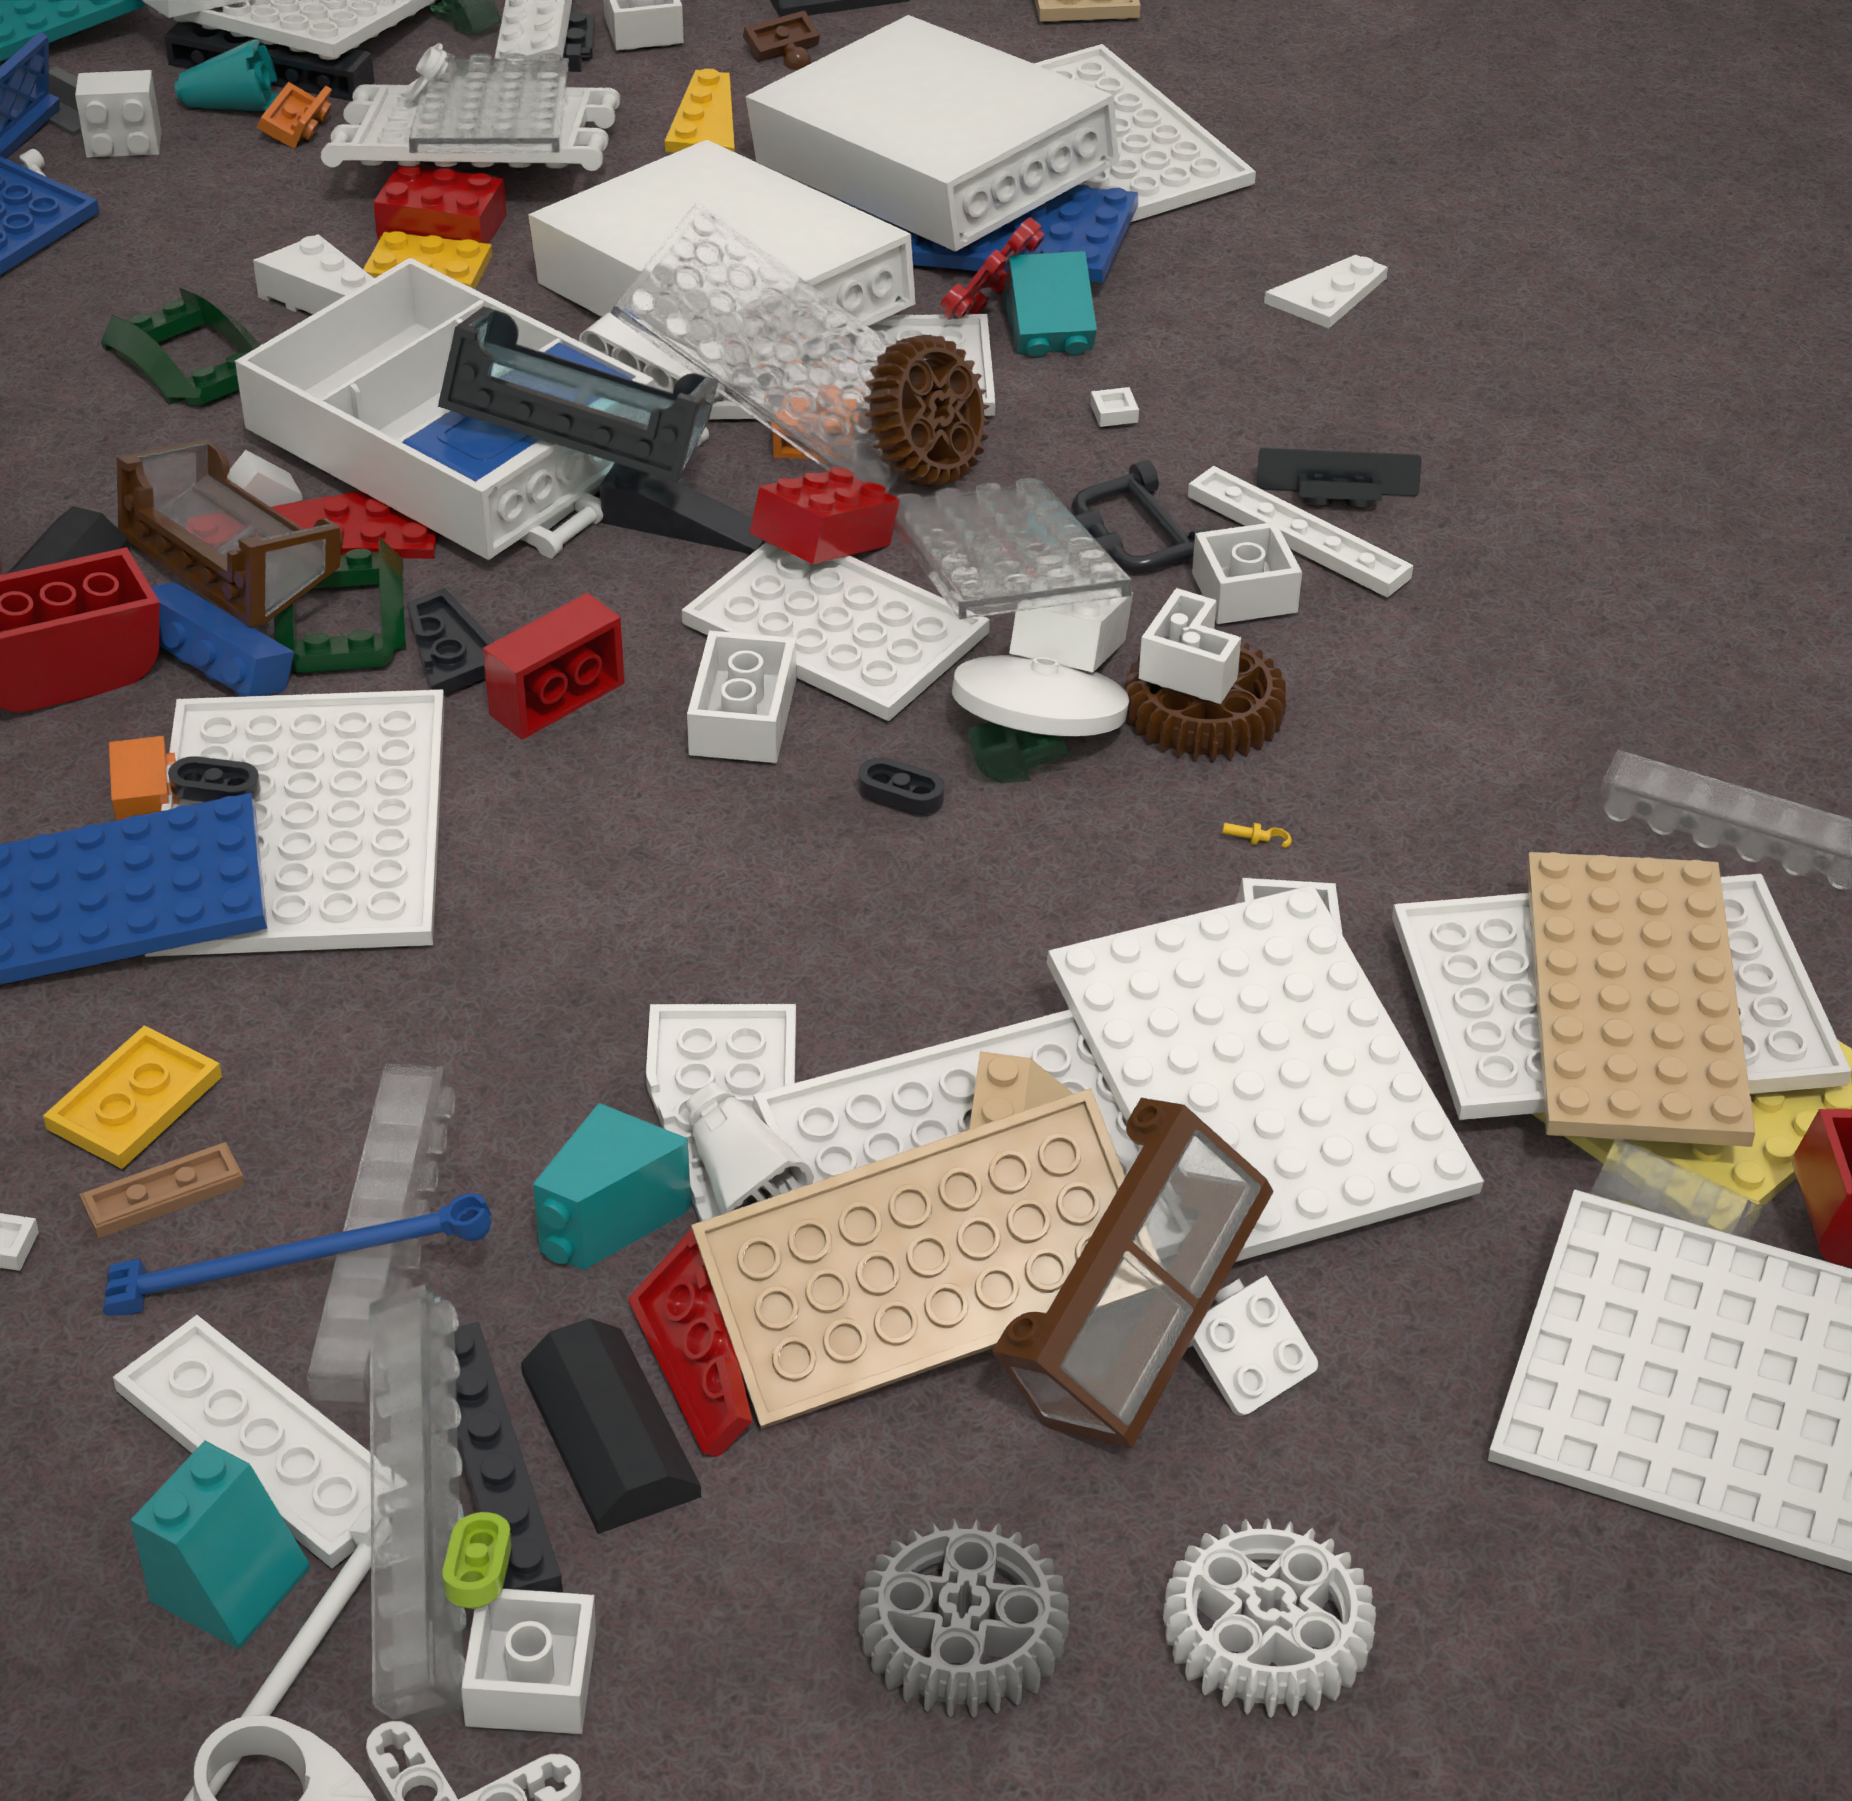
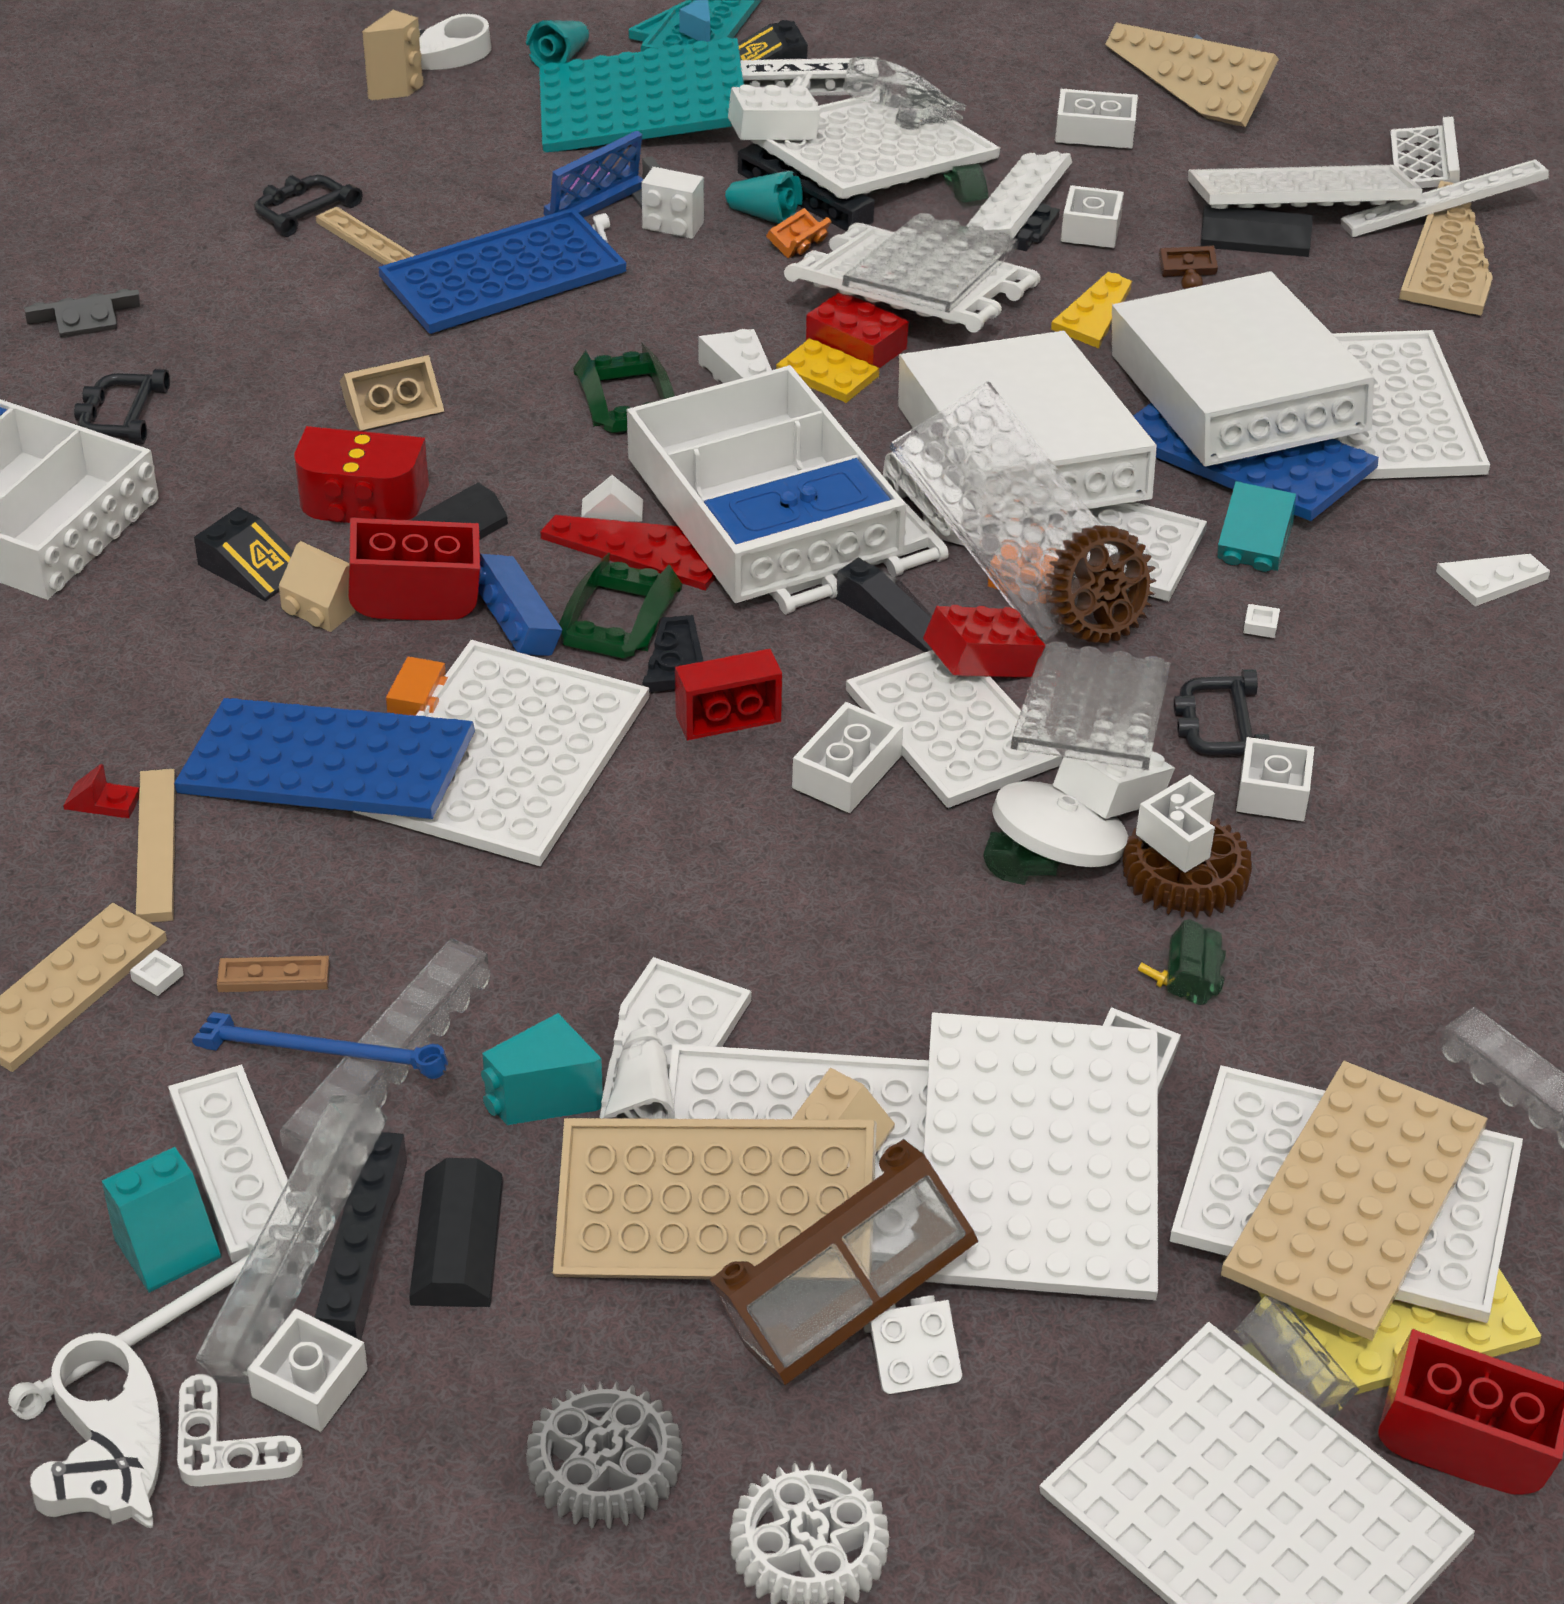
camera: 25 degrees right, 0 degrees up
(132, 1096) = (289, 904): yellow plate -> none
(212, 779) = (456, 703): black plate -> none
(219, 535) = (561, 528): windscreen -> none
(430, 66) = (898, 223): white plate -> none
(477, 1560) = (299, 1289): lime plate -> none
(570, 402) = (832, 505): black windscreen -> none
(693, 1346) = (535, 1208): red wing -> none
(901, 785) = (929, 860): black plate -> none
(991, 275) = (1220, 490): red plant -> none
(1286, 802) = (1195, 962): none -> clear green brick
(1302, 531) = (1344, 760): white plate -> none
(1338, 474) = (1401, 725): black bracket -> none

